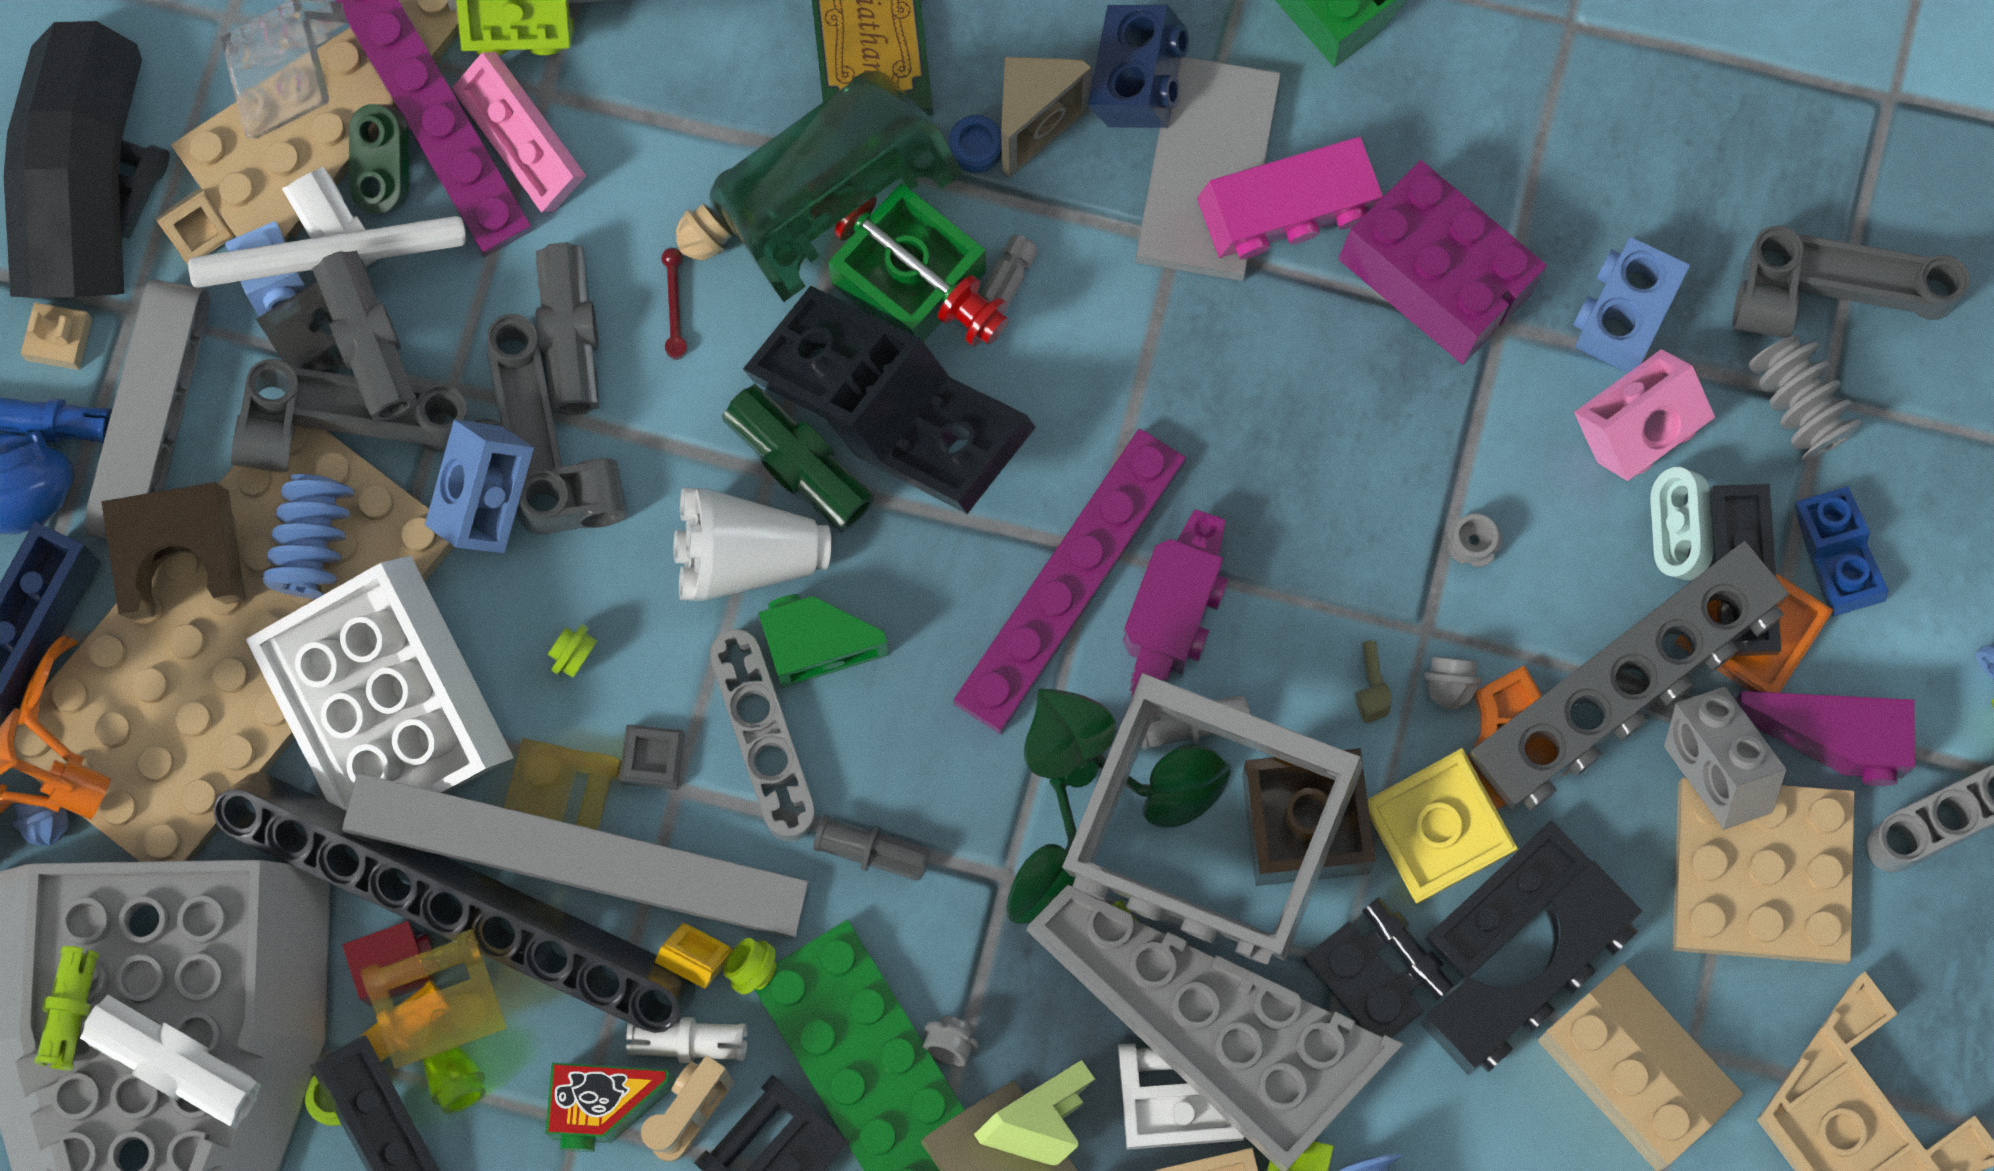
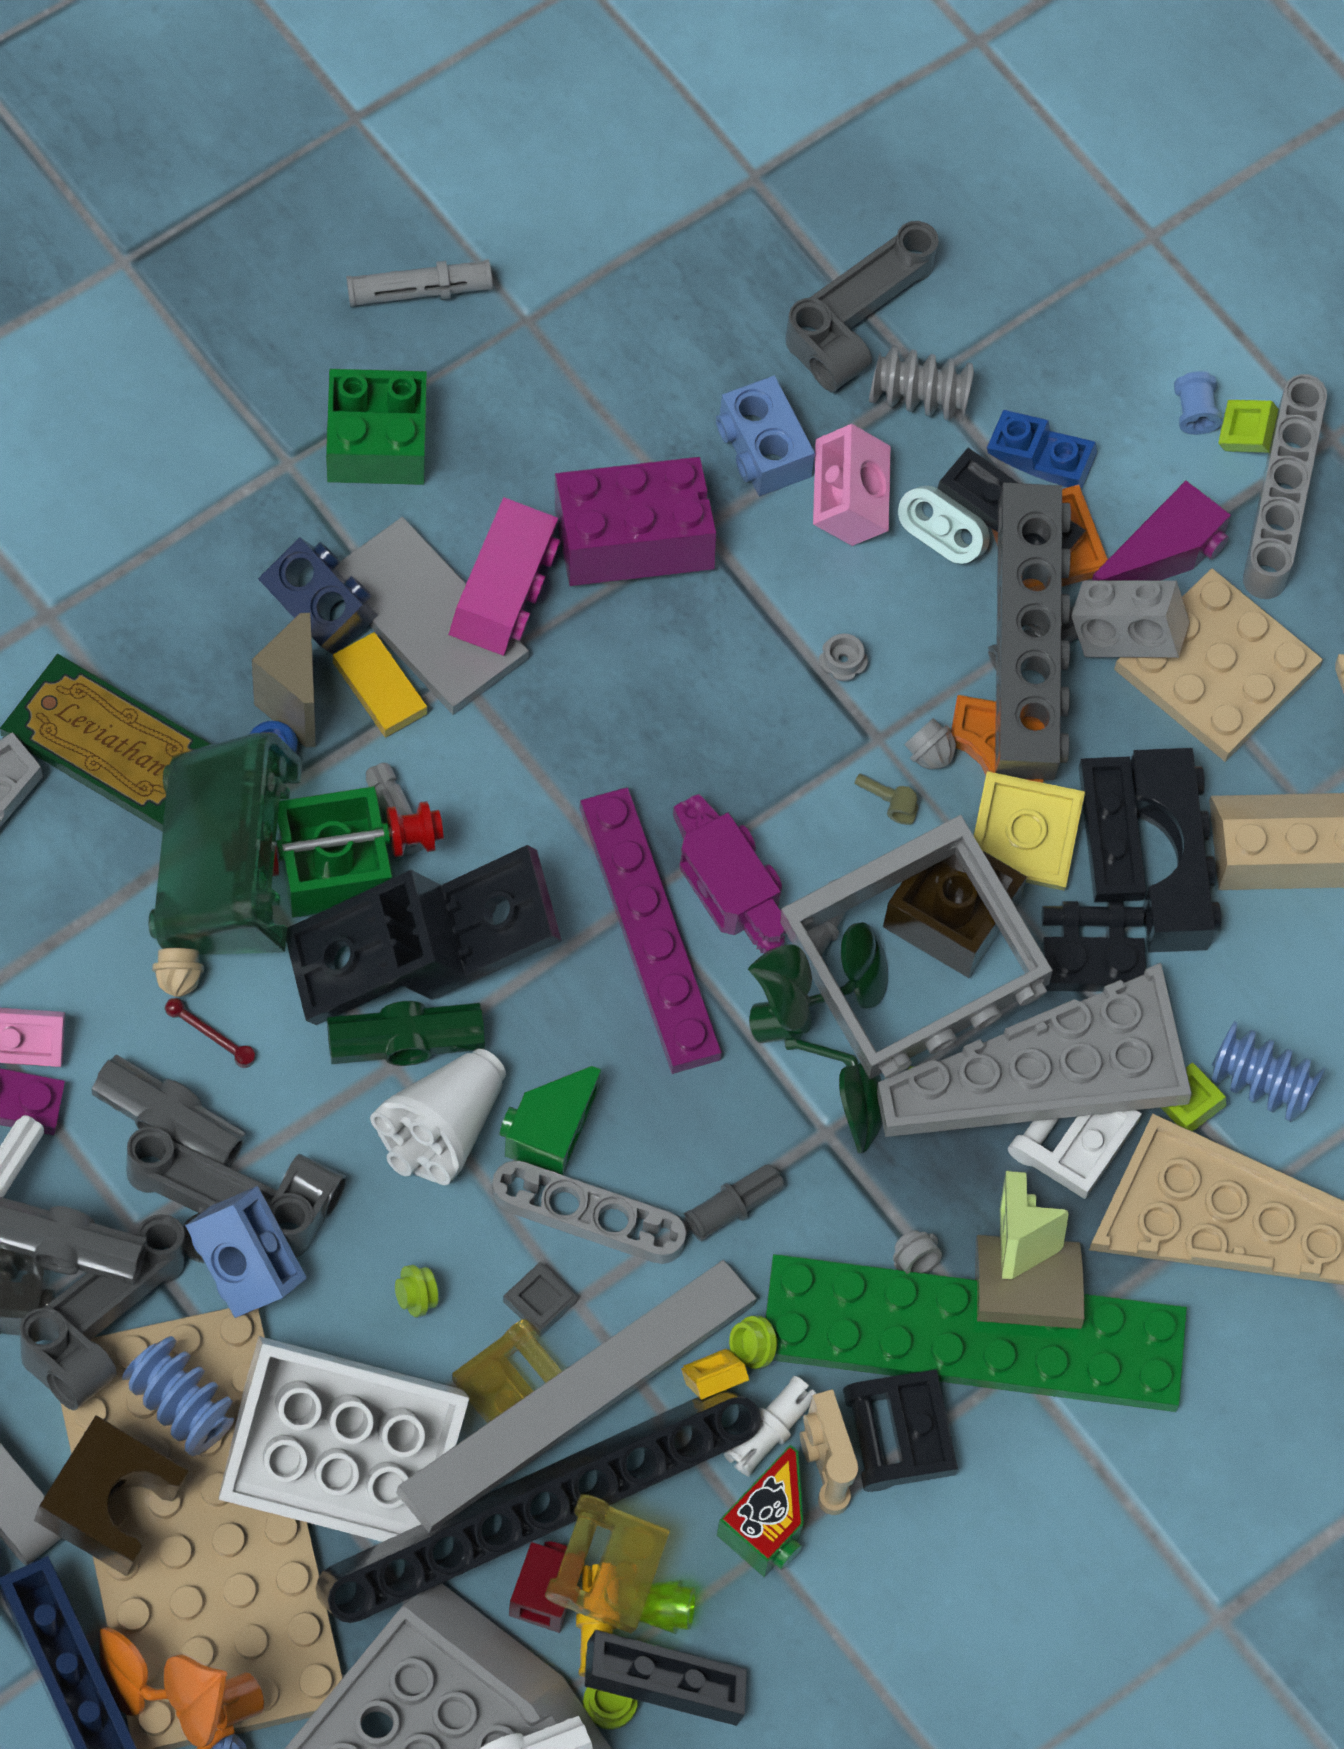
camera: 60 degrees left, 10 degrees down
(1108, 181) = (379, 684): none -> yellow tile

